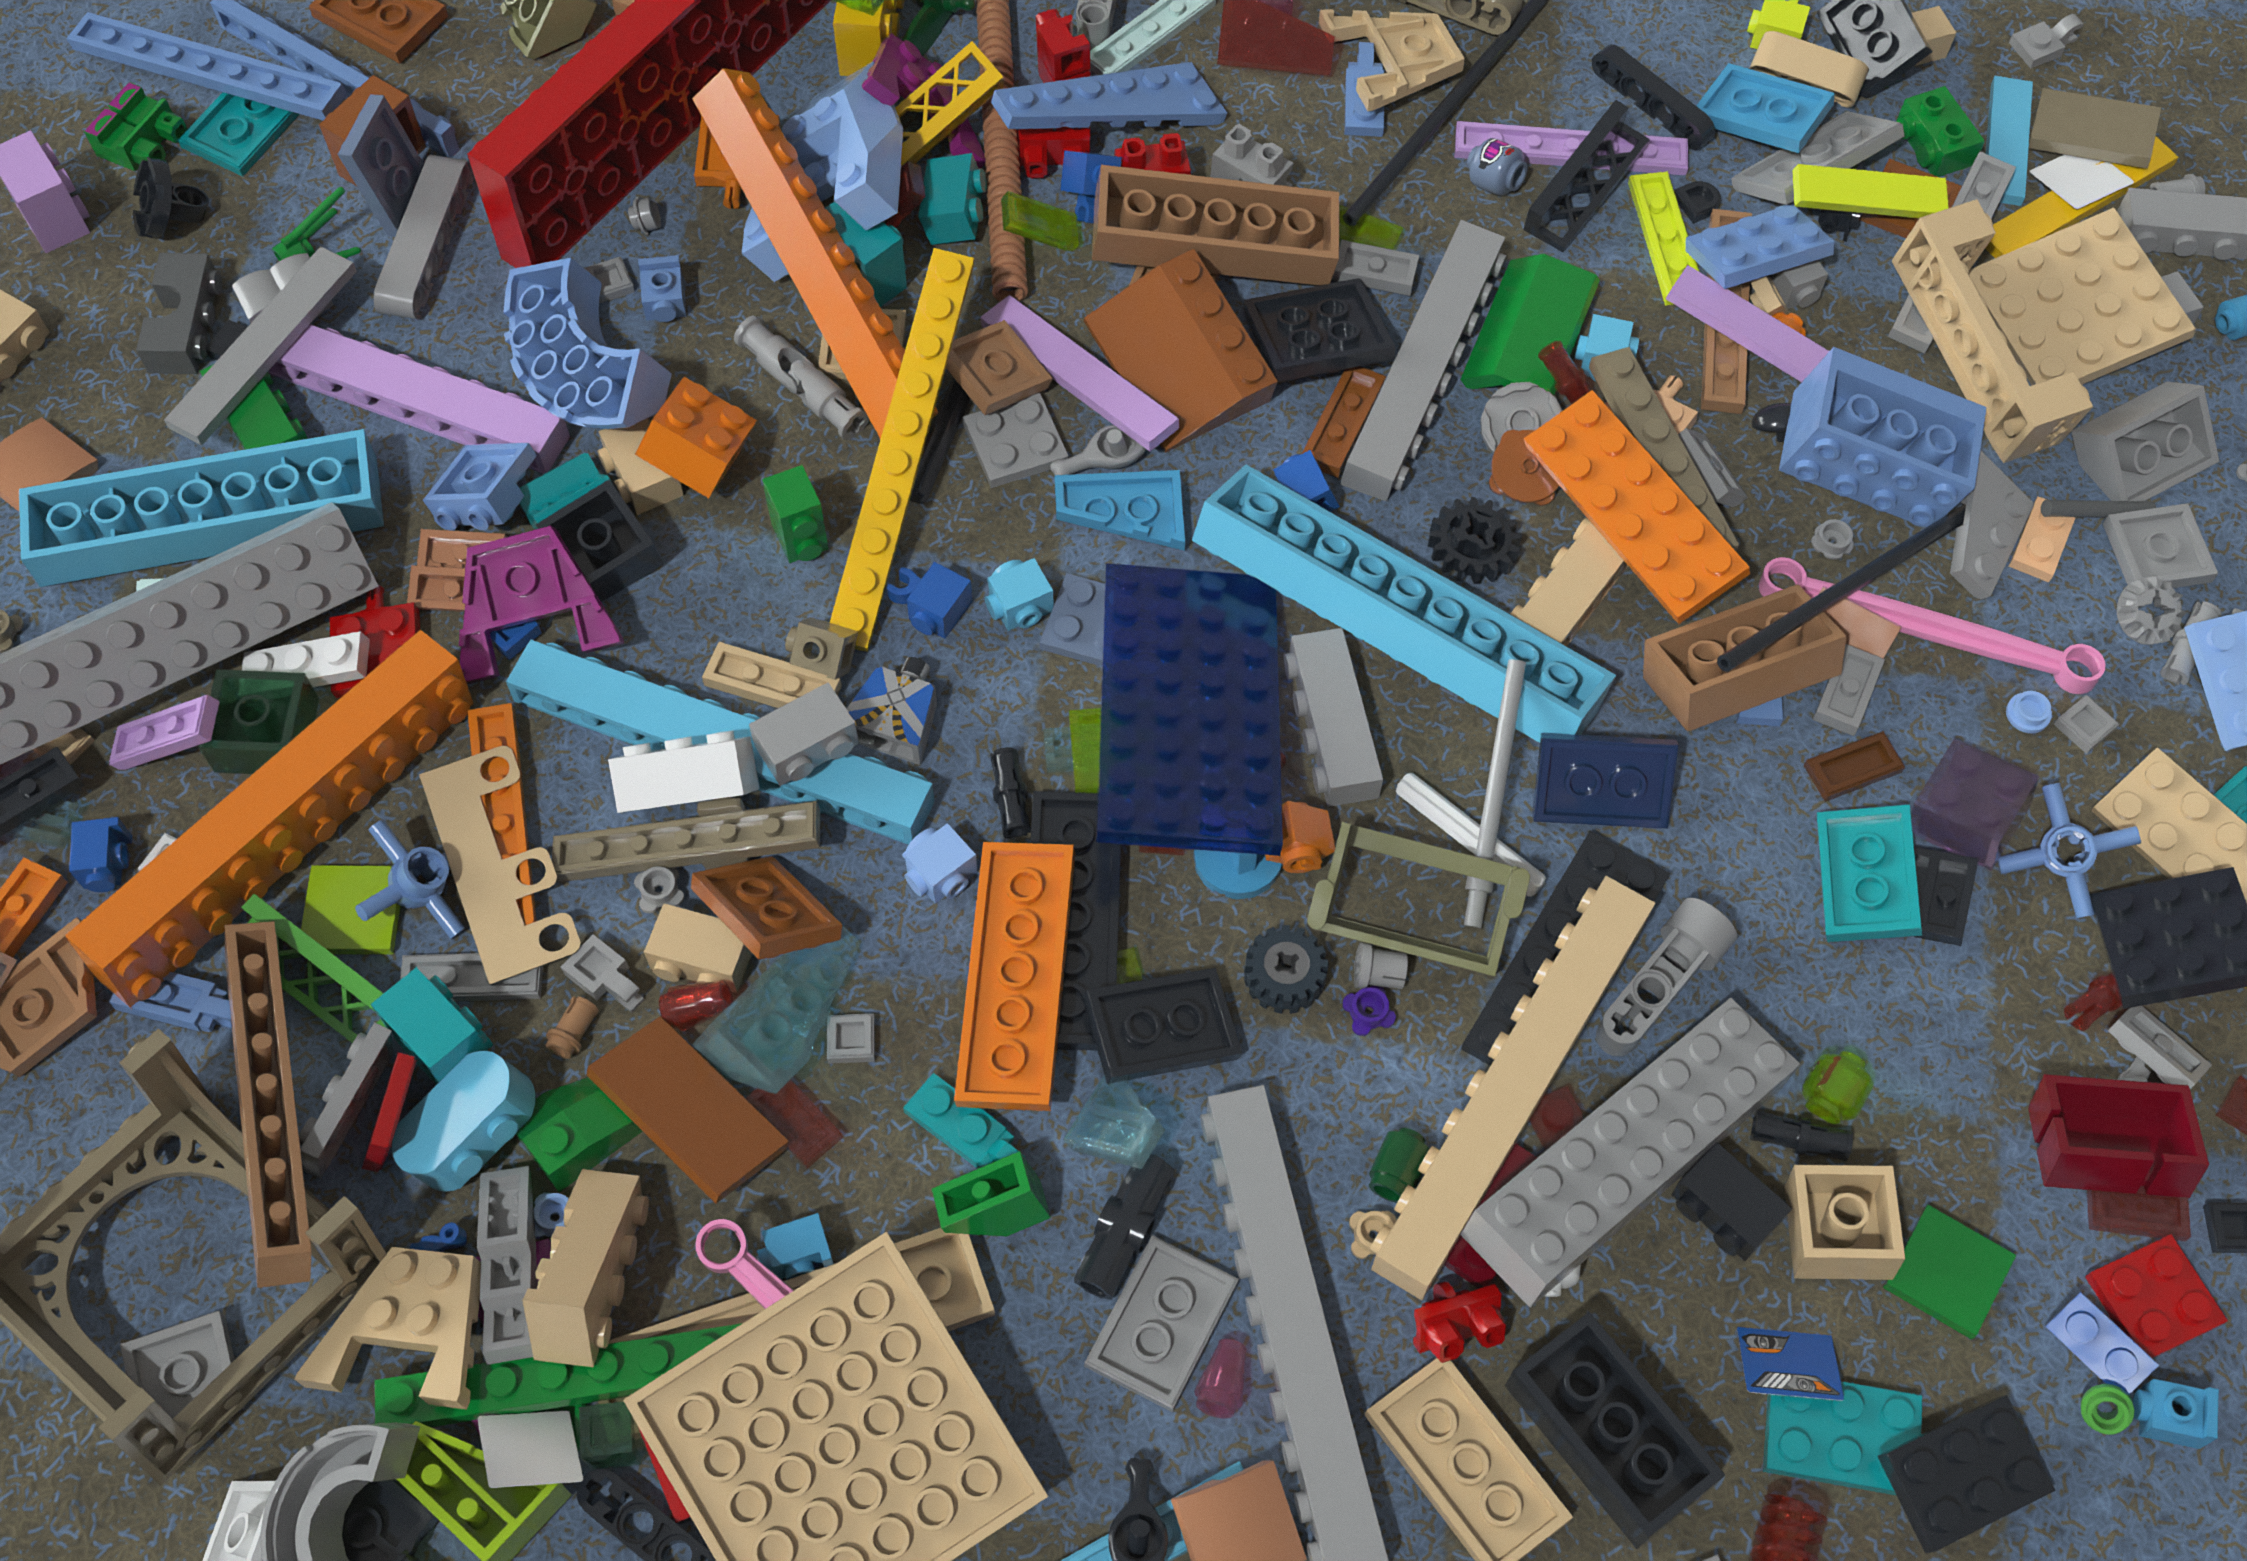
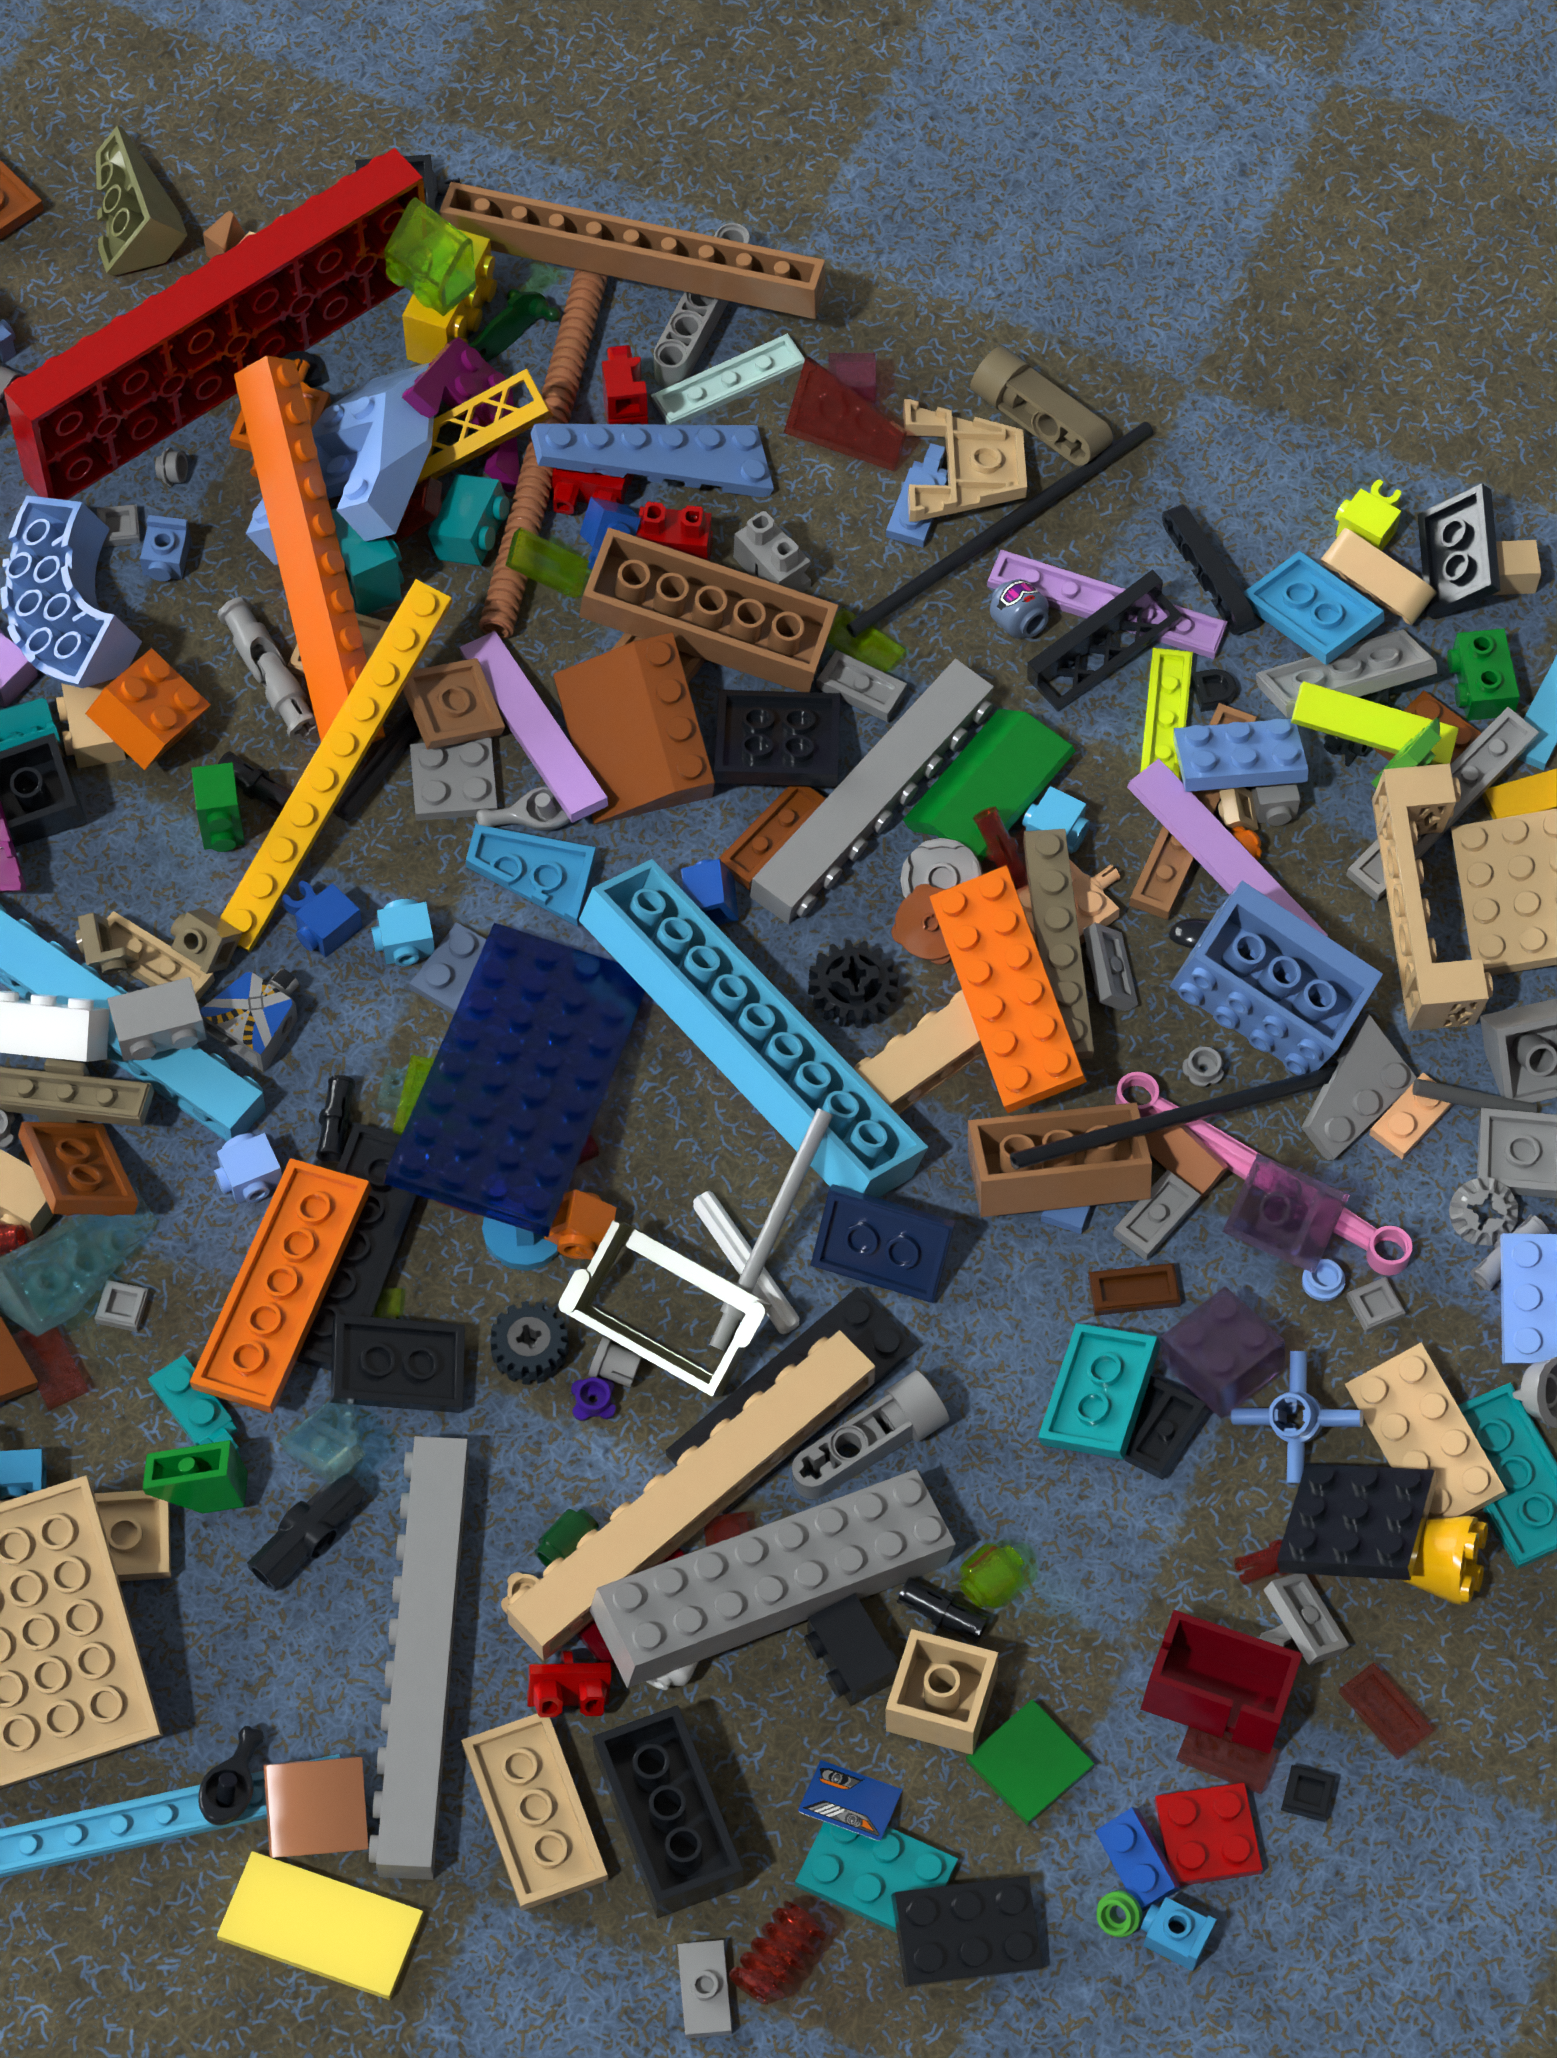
camera: 15 degrees right, 0 degrees up
(711, 674) = (96, 944): none -> dark tan bracket
(834, 490) = (257, 783): none -> black pin
(1161, 1323) = (313, 1622): light grey tile -> none
(1222, 1381) = (347, 1683): clear pink cone -> none
(1334, 718) = (656, 1121): light grey brick -> none
(1932, 198) = (1416, 751): none -> bright green plate
(1983, 653) = (1285, 1213): none -> clear purple brick

